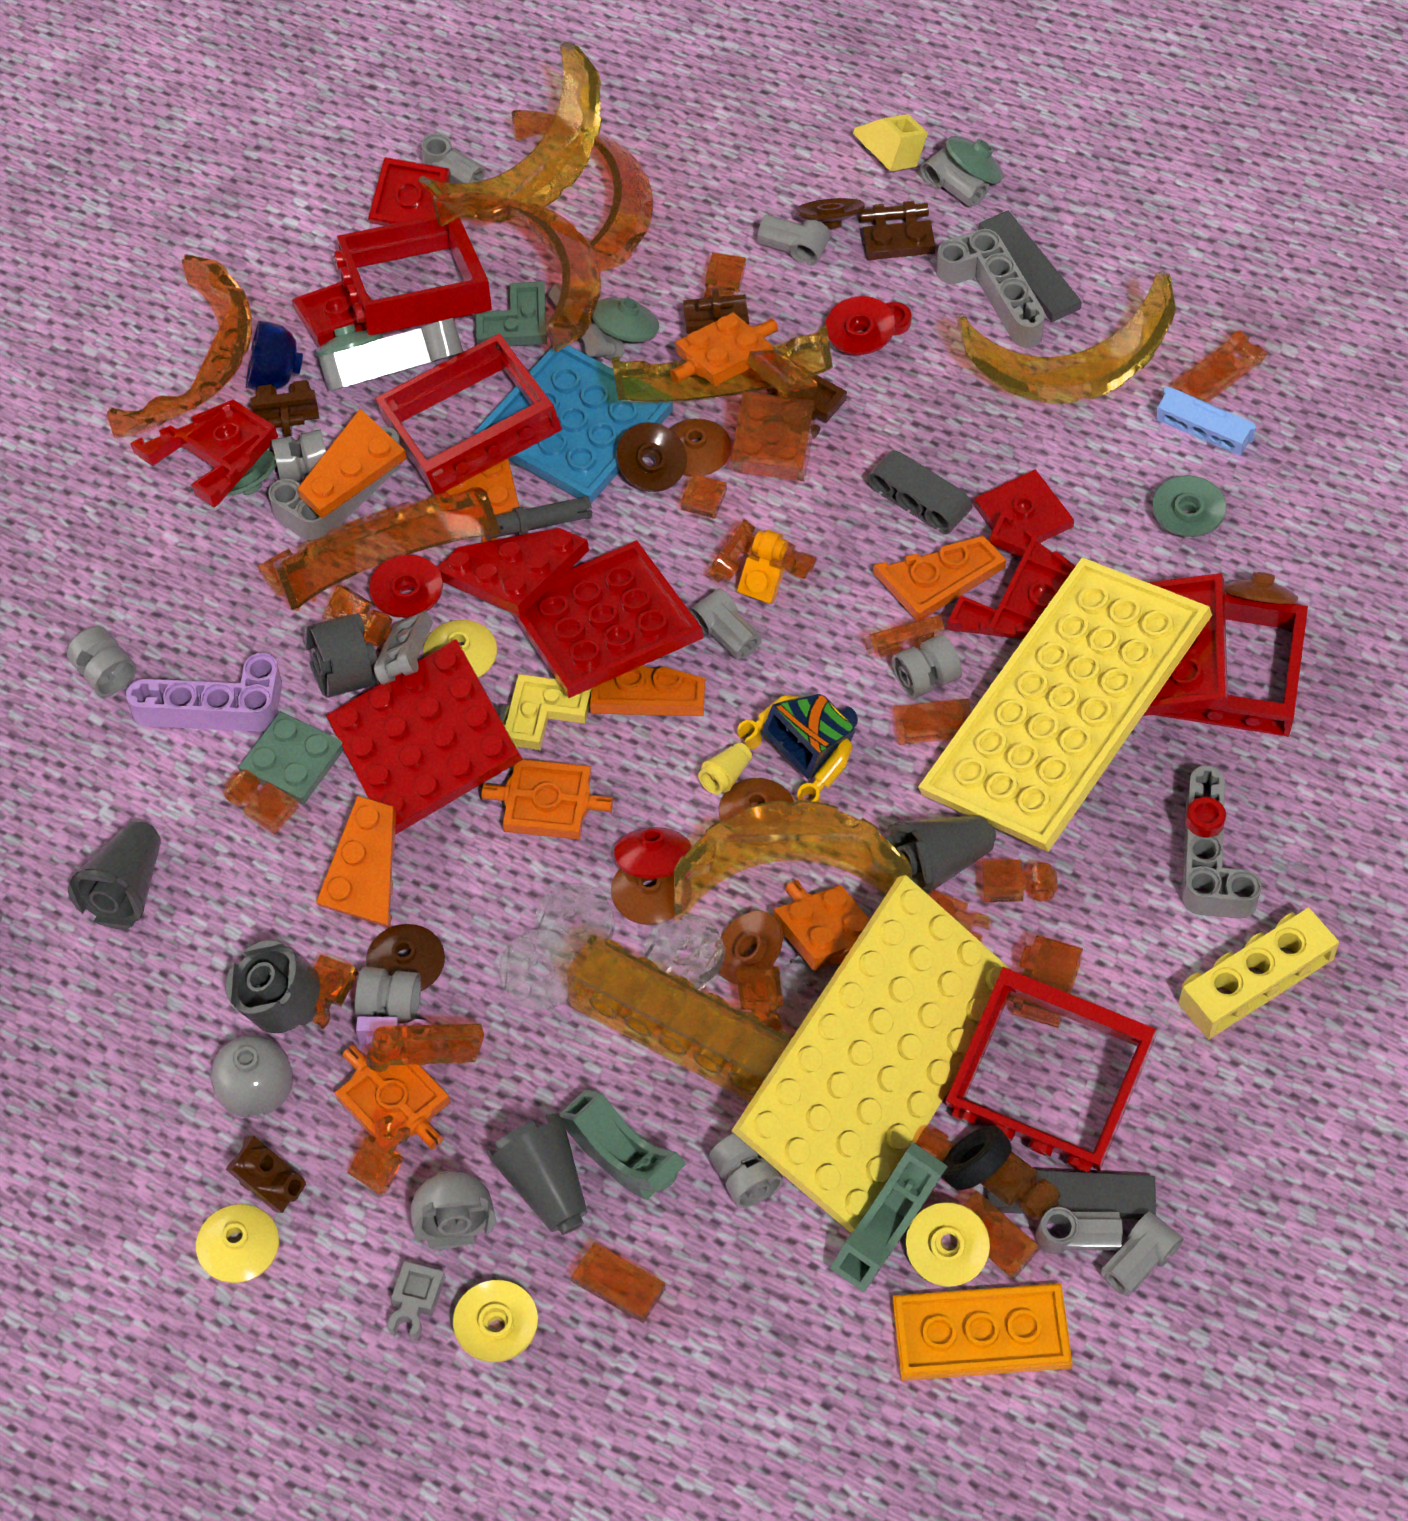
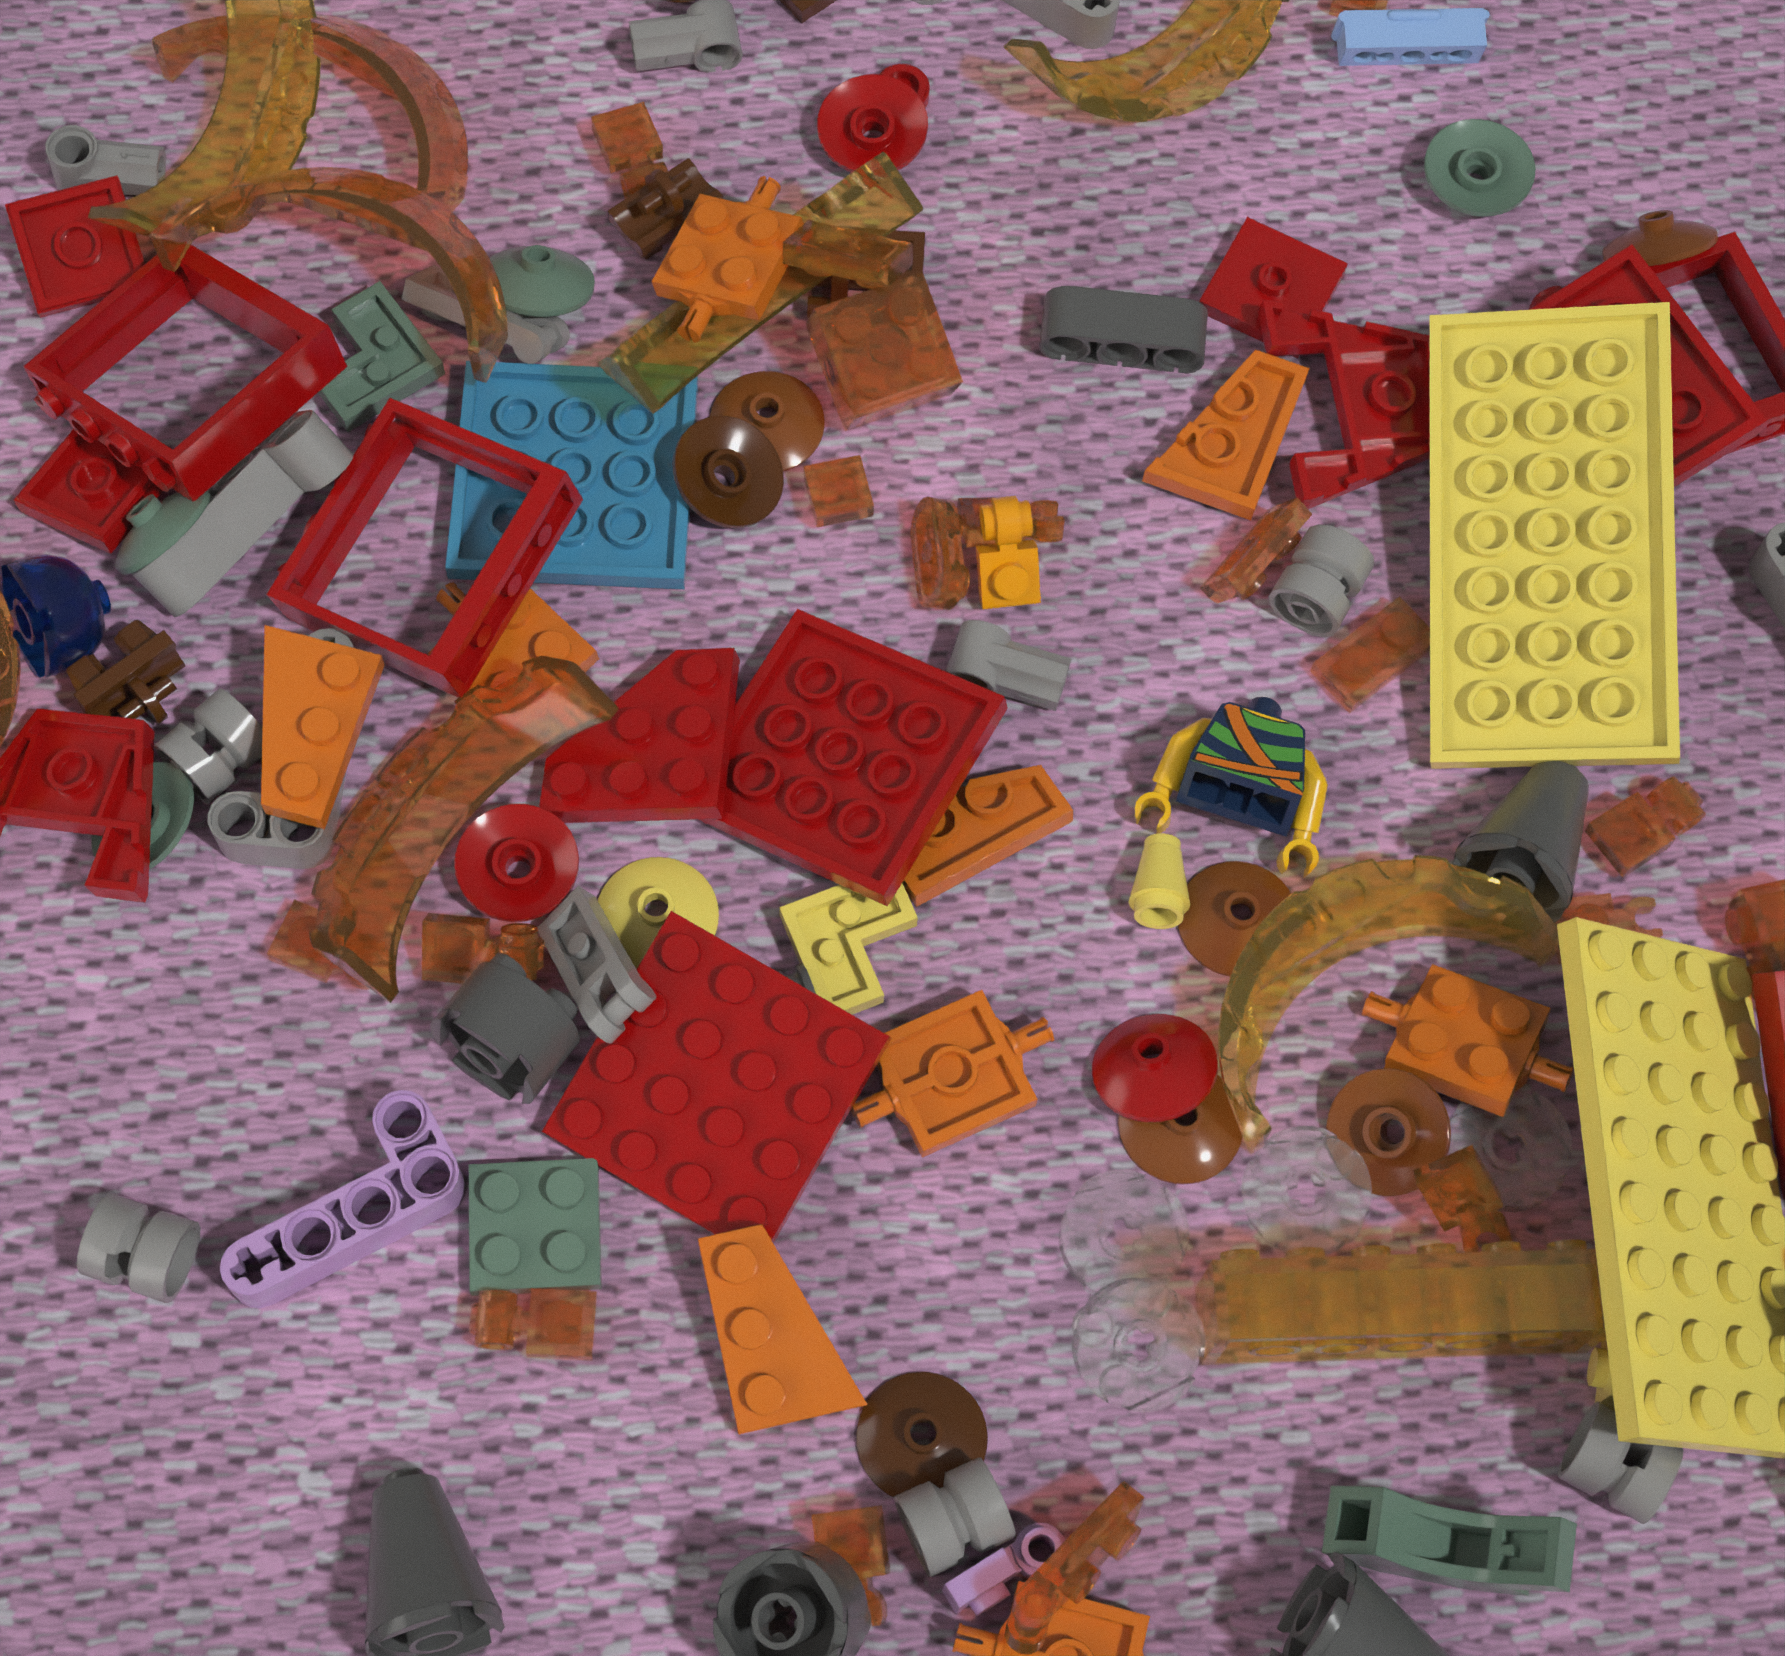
camera: 40 degrees left, 10 degrees up
(523, 520) = (617, 666): dark grey pin -> none

